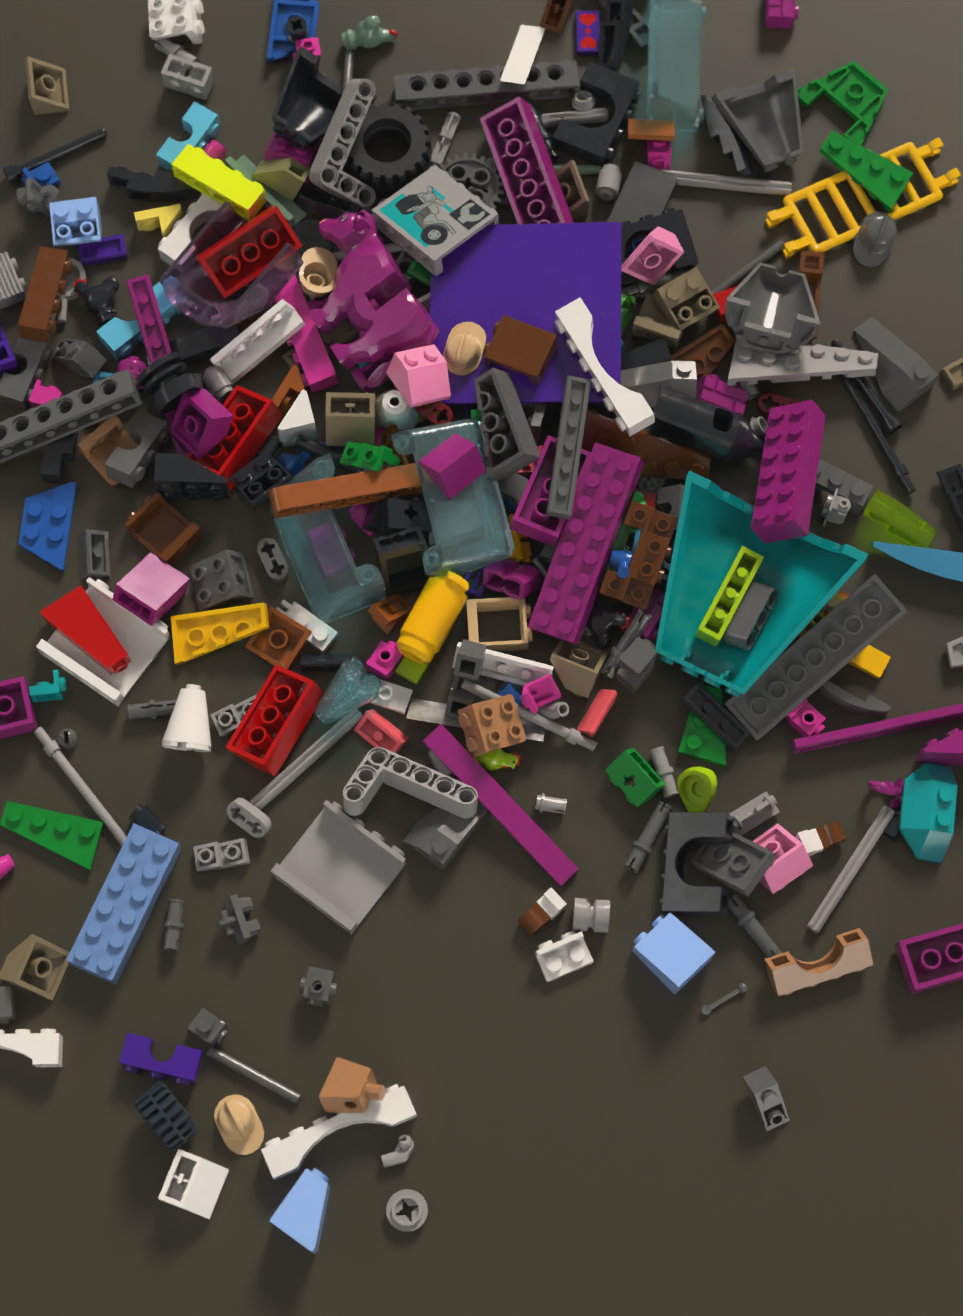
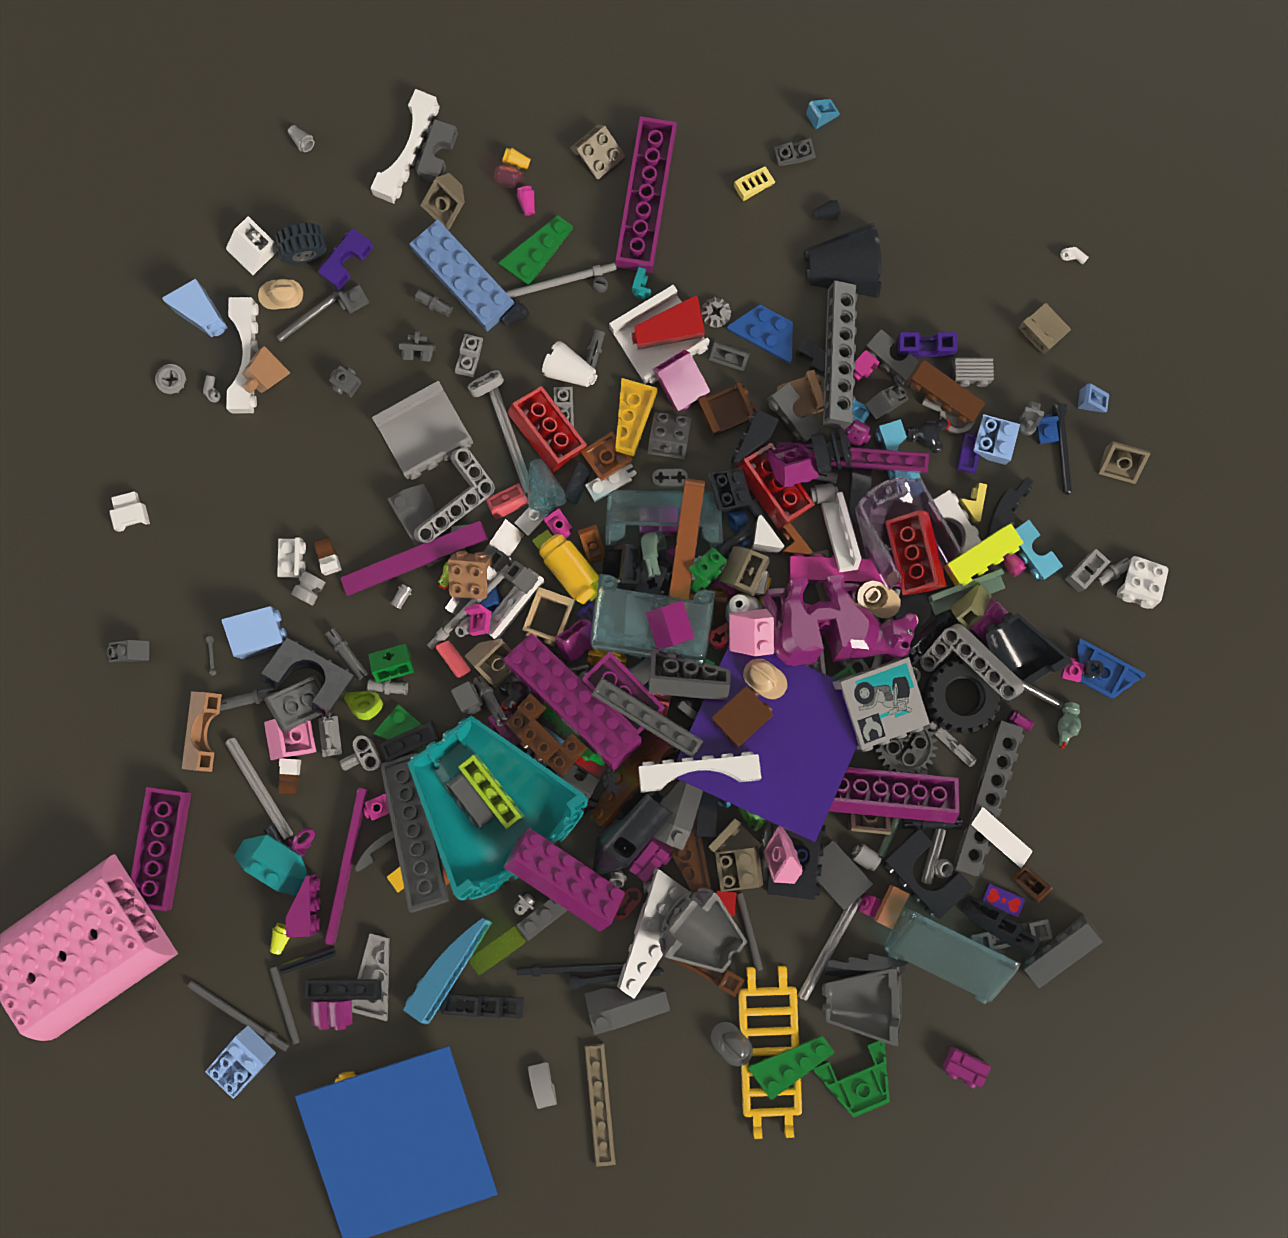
camera: 110 degrees right, 10 degrees up
(23, 1190) = (302, 139): none -> light grey cone
(36, 592) = (714, 320): none -> light grey gear
(364, 533) = (650, 544): none -> sand green piece
(385, 91) = (1020, 720): none -> magenta pin
(596, 1182) = (128, 511): none -> white piece
(620, 562) = (548, 720): blue bar -> none
(757, 764) = (361, 756): none -> light grey beam

